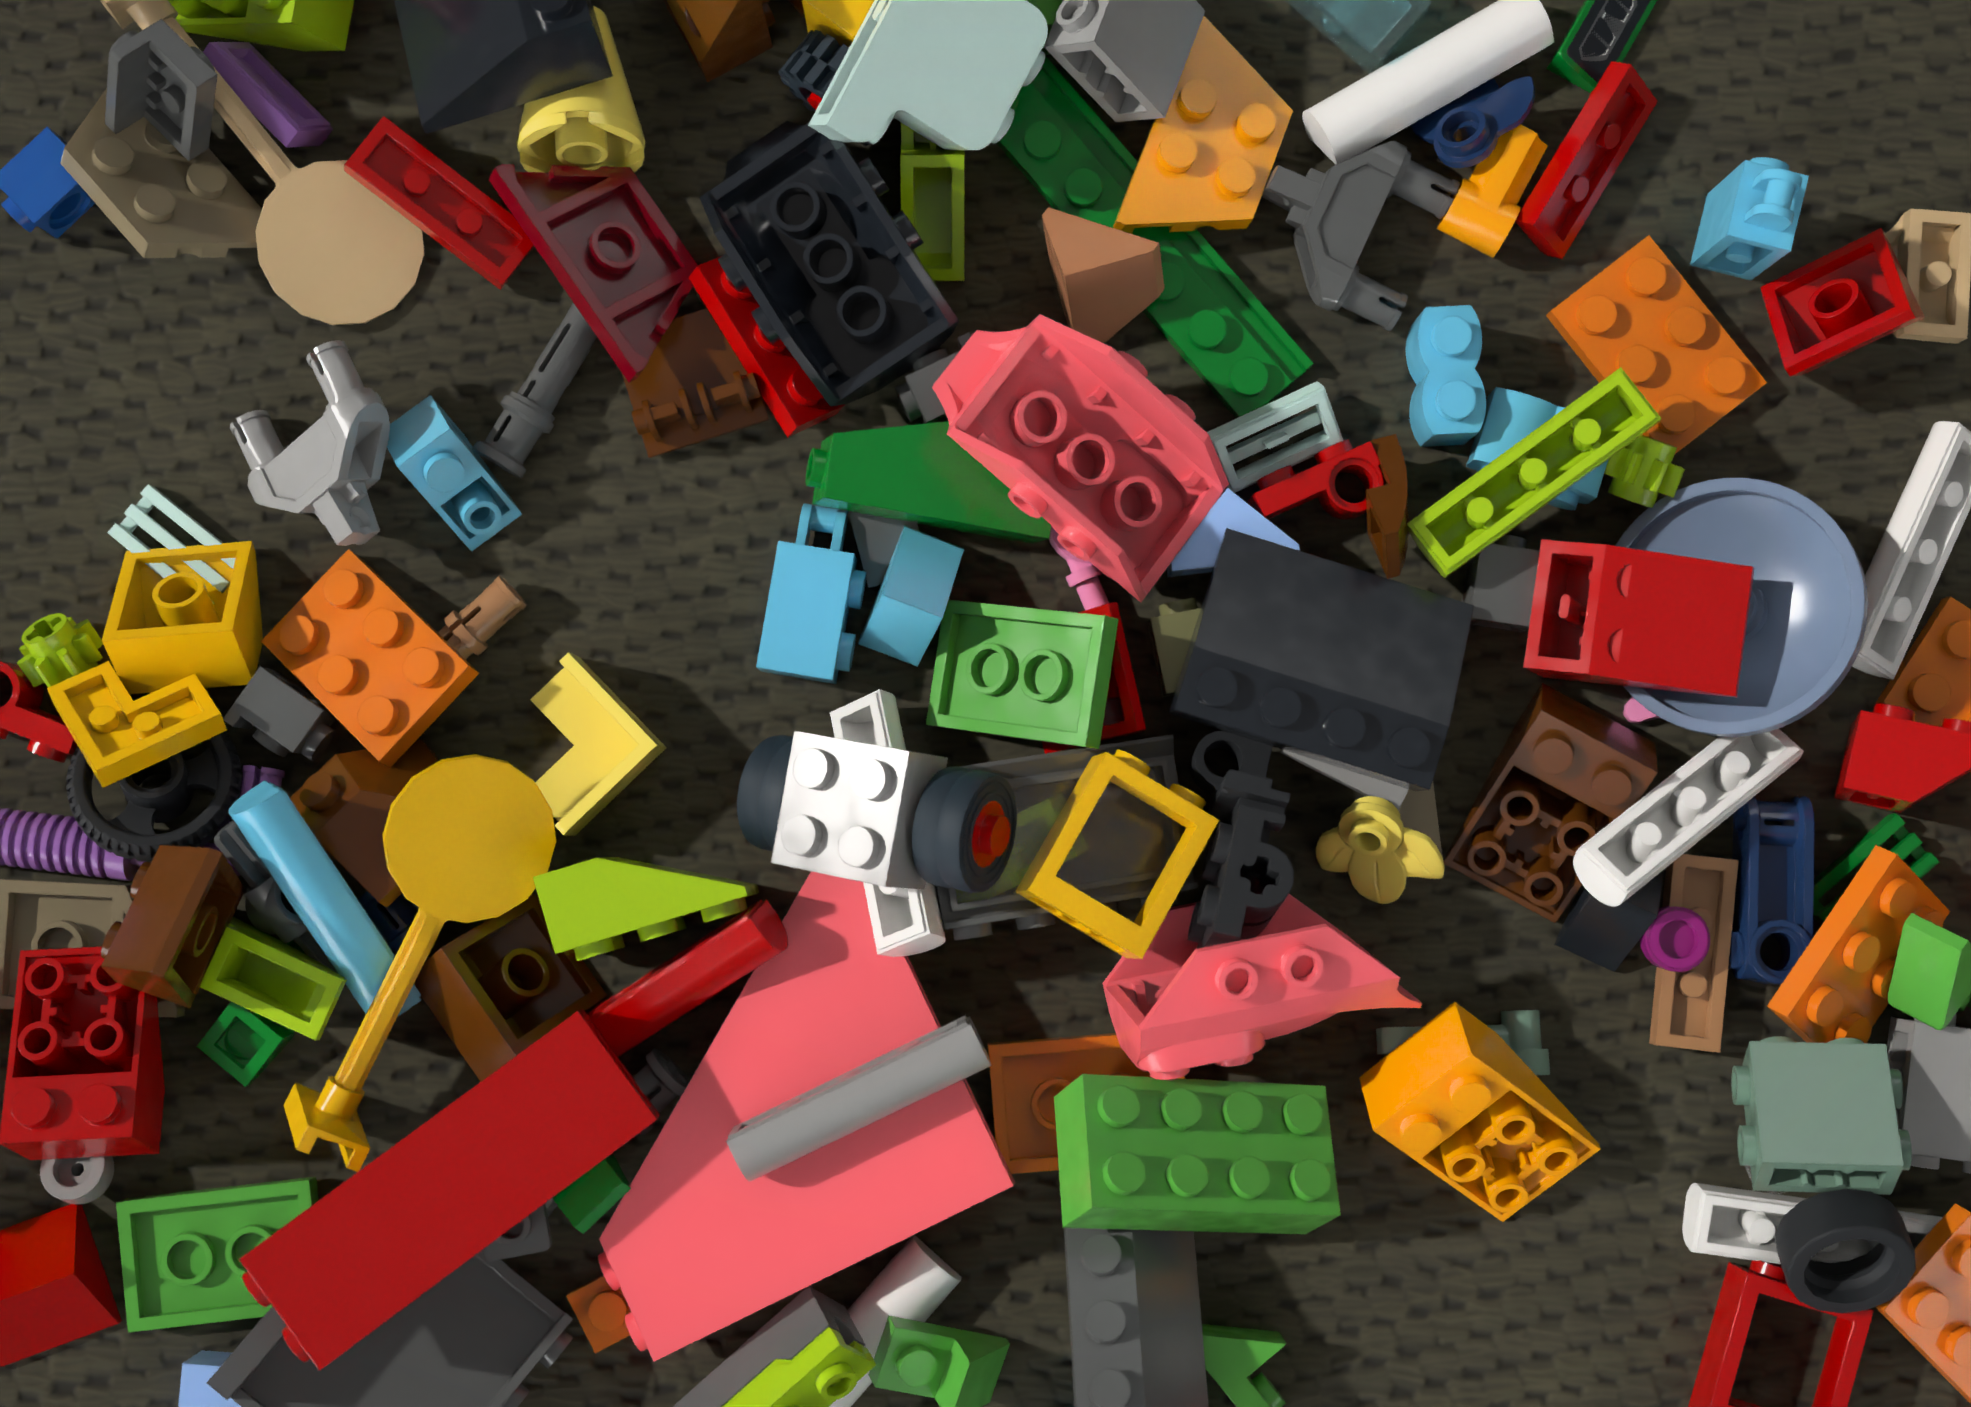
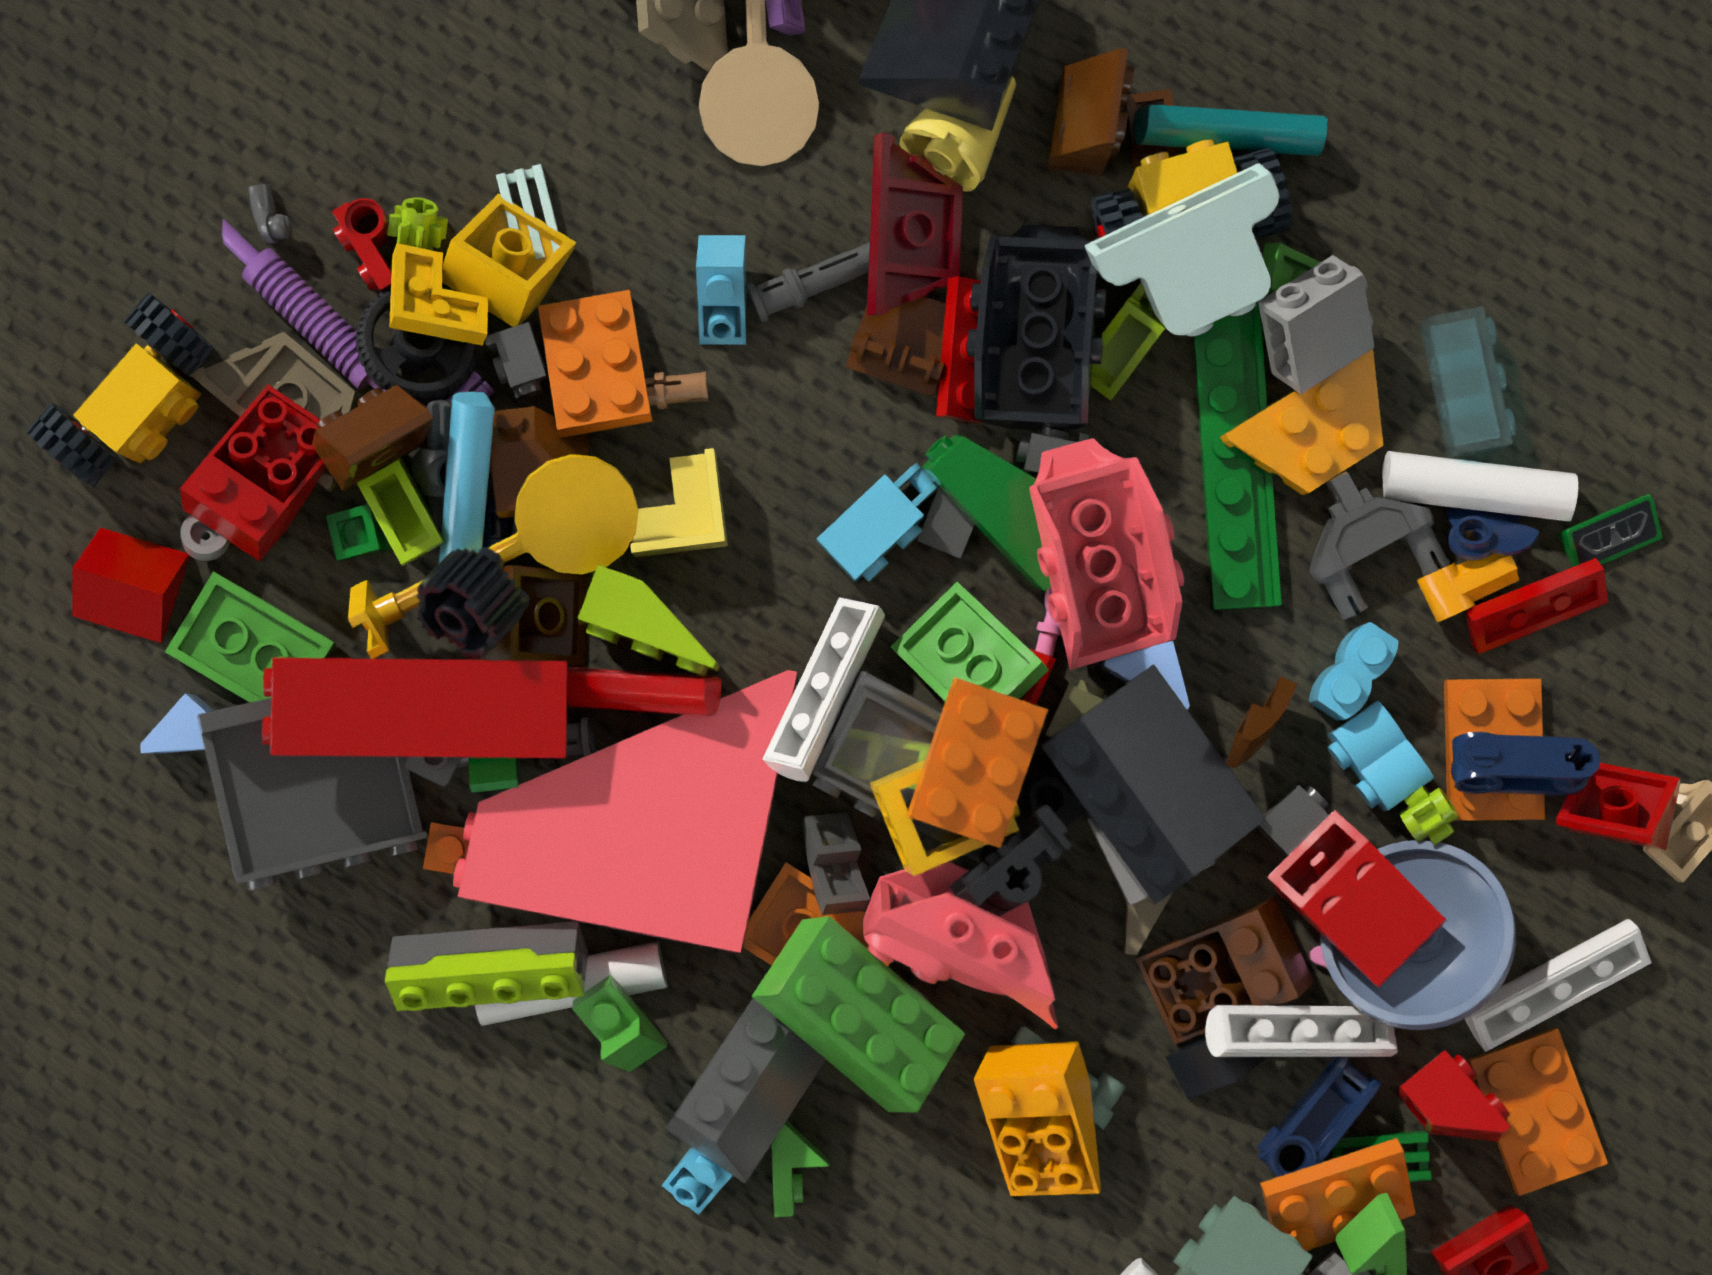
camera: 40 degrees right, 0 degrees up
(331, 461) = (657, 233): light grey connector -> none
(419, 1025) = (470, 601): none -> black brick
(440, 202) = (835, 126): red plate -> none
(857, 1098) = (689, 833): light grey brick -> none
(876, 813) = (823, 676): brick -> none
(912, 596) = (939, 565): medium azure slope -> none
(1040, 1008) = (832, 863): none -> dark grey slope
(1101, 273) = (1193, 458): nougat slope -> none
(1117, 781) = (977, 762): none -> orange plate
(1266, 416) = (1226, 615): light aqua tile -> none
(1285, 490) = (1207, 668): red plate -> none
(1378, 850) = (1101, 921): light yellow plate -> none
(1532, 473) = (1358, 766): lime brick -> none
(1676, 939) = (1237, 1105): magenta tile -> none
(1692, 1002) = (1243, 1122): medium nougat plate -> none
(1707, 335) = (1522, 764): none -> dark blue piece
(1750, 218) = (1605, 712): medium azure brick -> none

